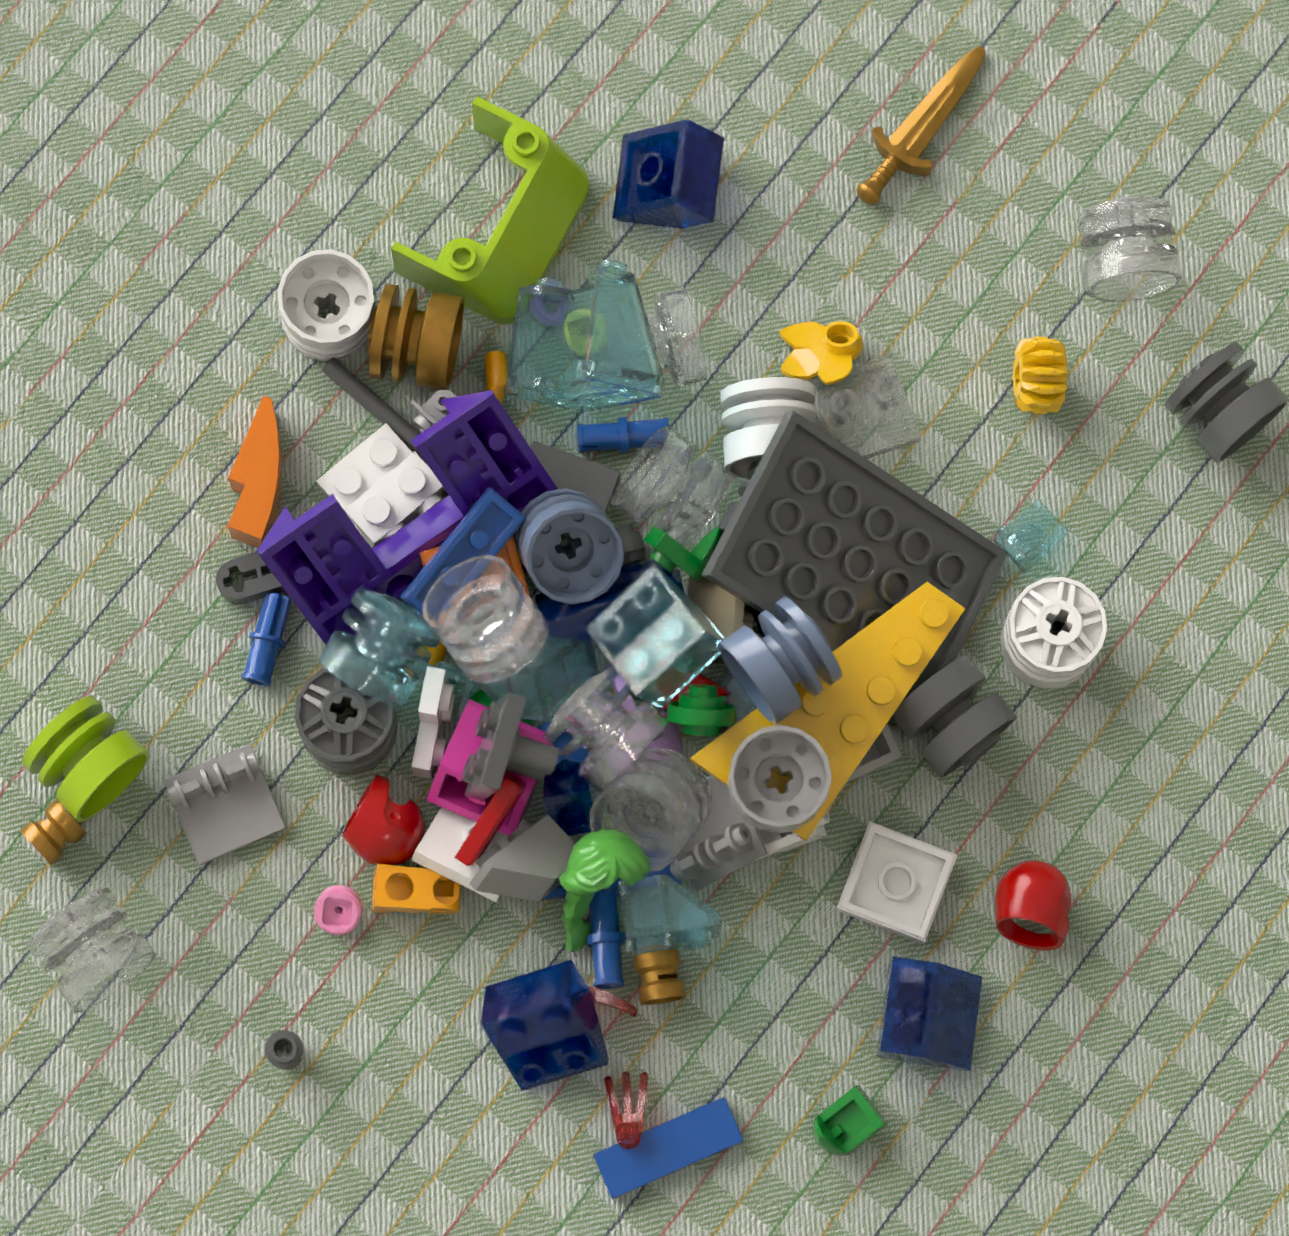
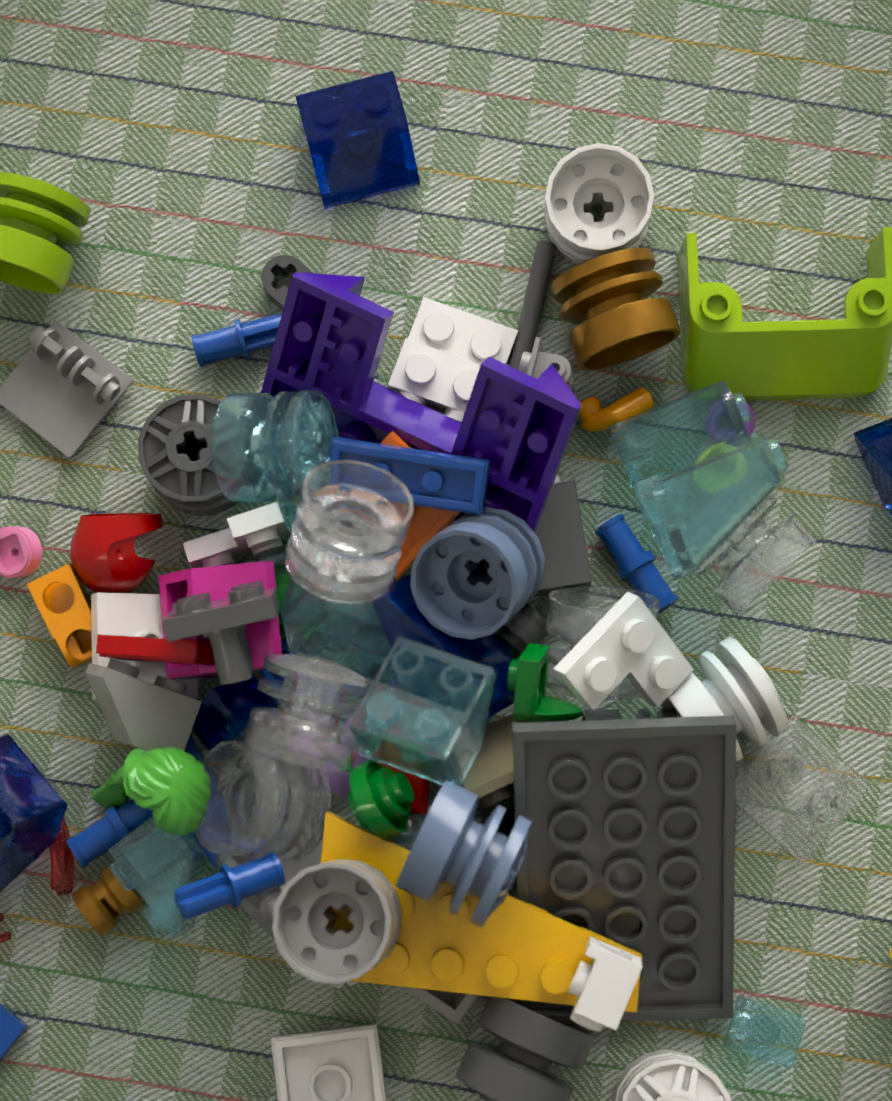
camera: 65 degrees right, 5 degrees up
(158, 461) = (358, 139): none -> clear blue slope
(257, 477) = (399, 239): orange slope -> none
(691, 462) = (620, 646): none -> white plate
(706, 858) = (229, 886): none -> blue axle
(821, 350) = (832, 712): yellow plate -> none
(933, 615) = (603, 985): none -> white brick

